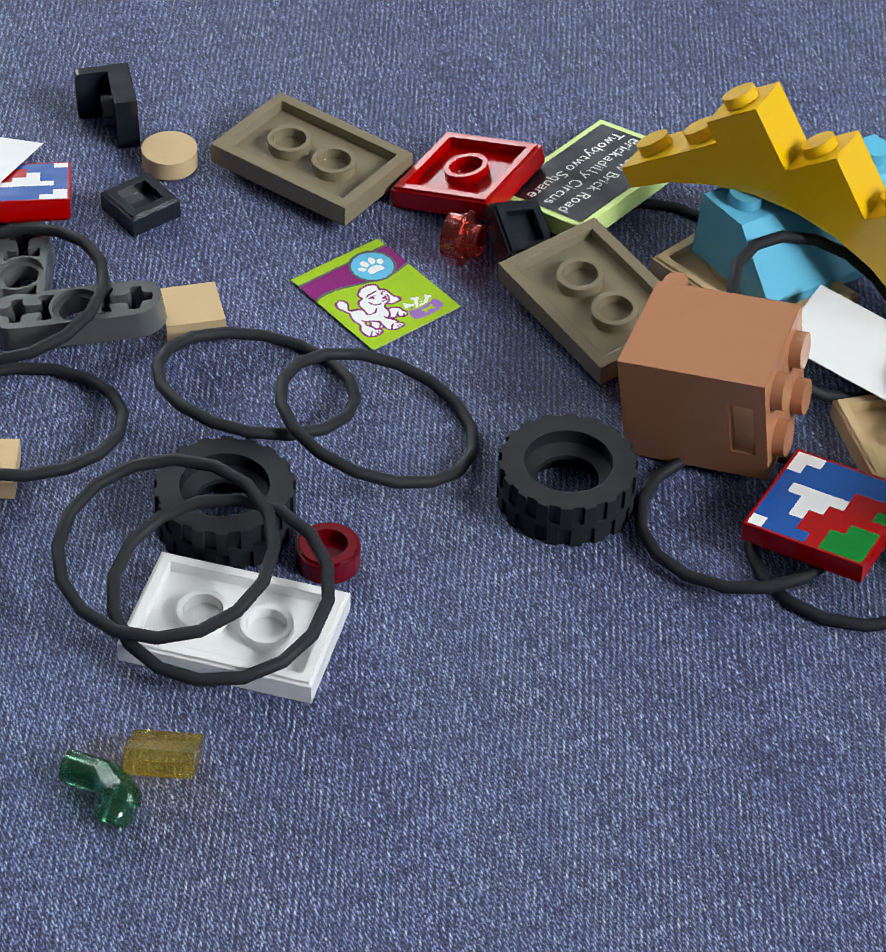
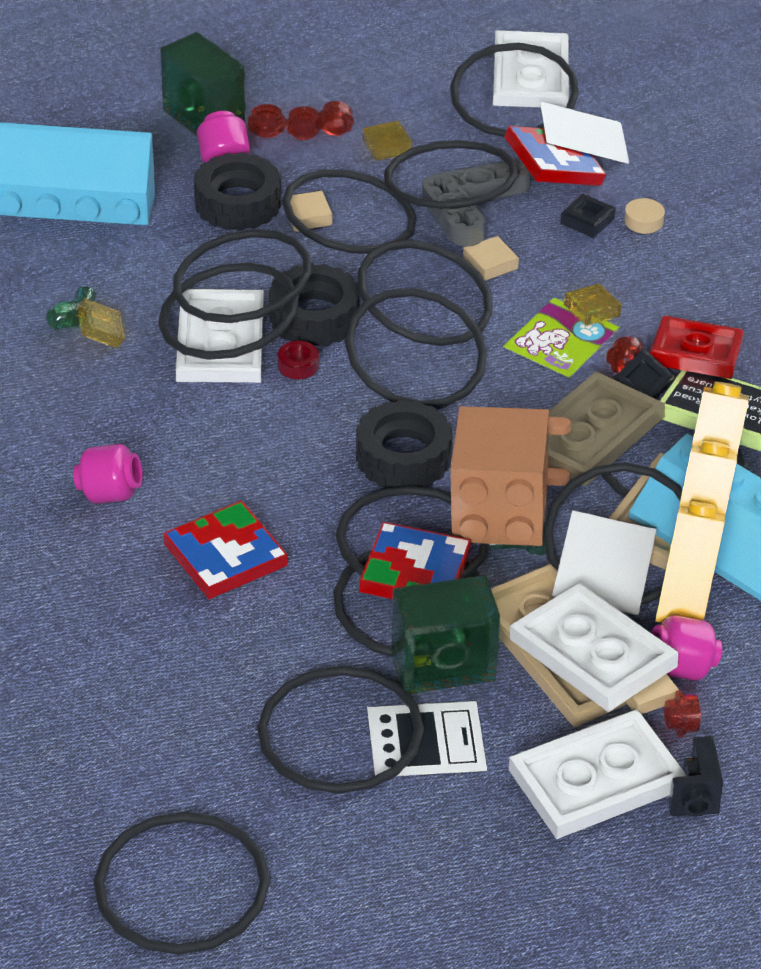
camera: 75 degrees right, 0 degrees up
(109, 94) = (674, 177): black bracket -> none
(311, 158) = (673, 273): dark tan plate -> none
(337, 243) = (592, 304): none -> clear yellow tile
(539, 805) = (108, 473): none -> dark pink head
(719, 714) = (225, 549): none -> tile

